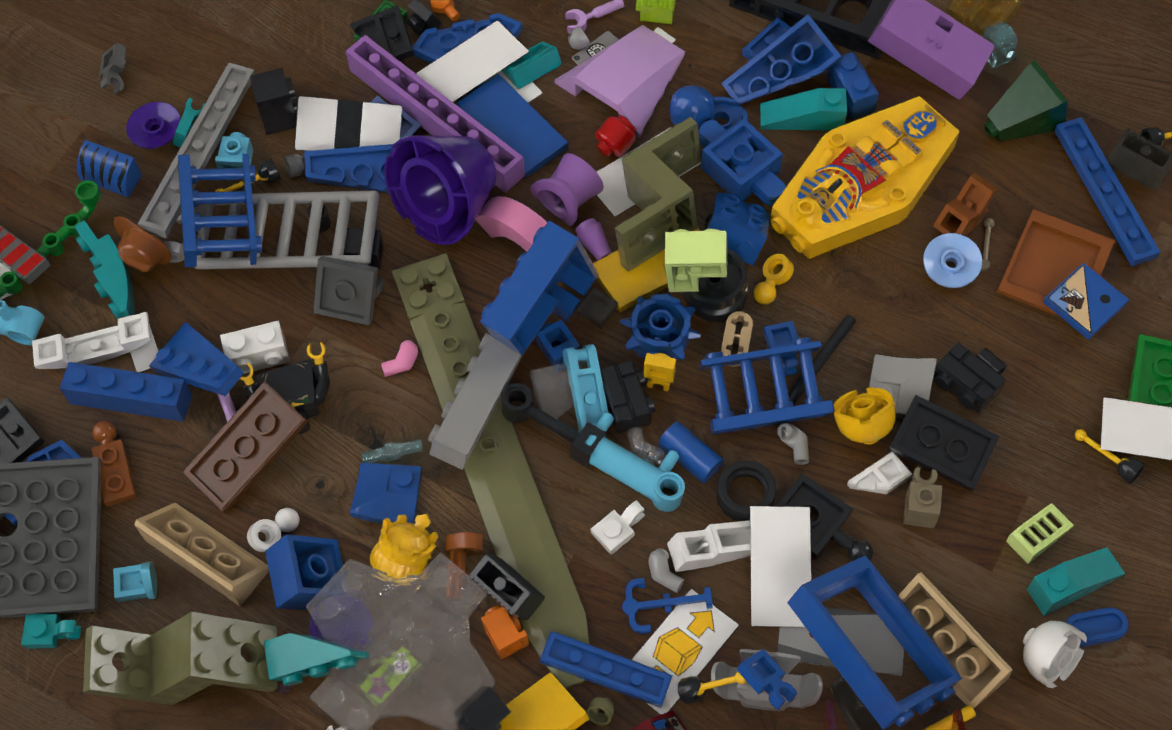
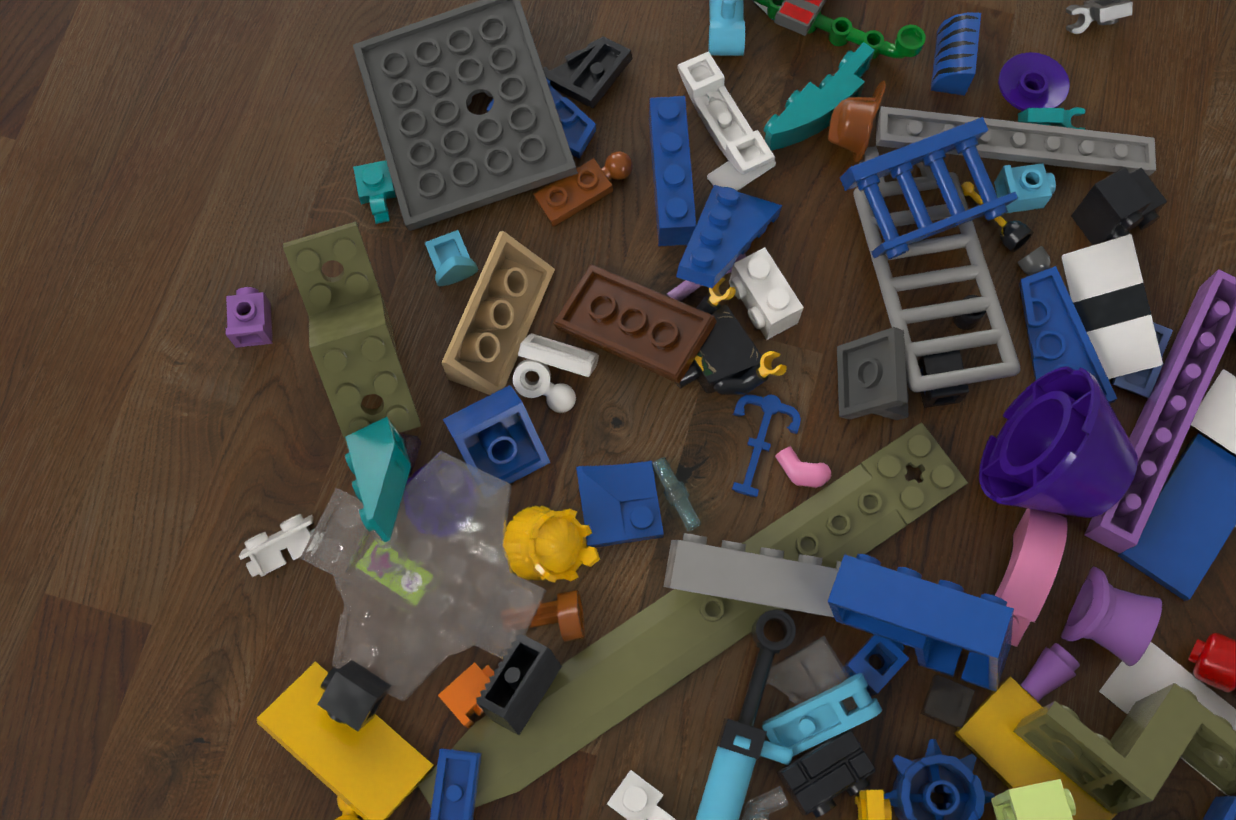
camera: 75 degrees right, 10 degrees up
(251, 510) = (558, 354): none -> white tile
(344, 371) = (770, 405): none -> blue piece

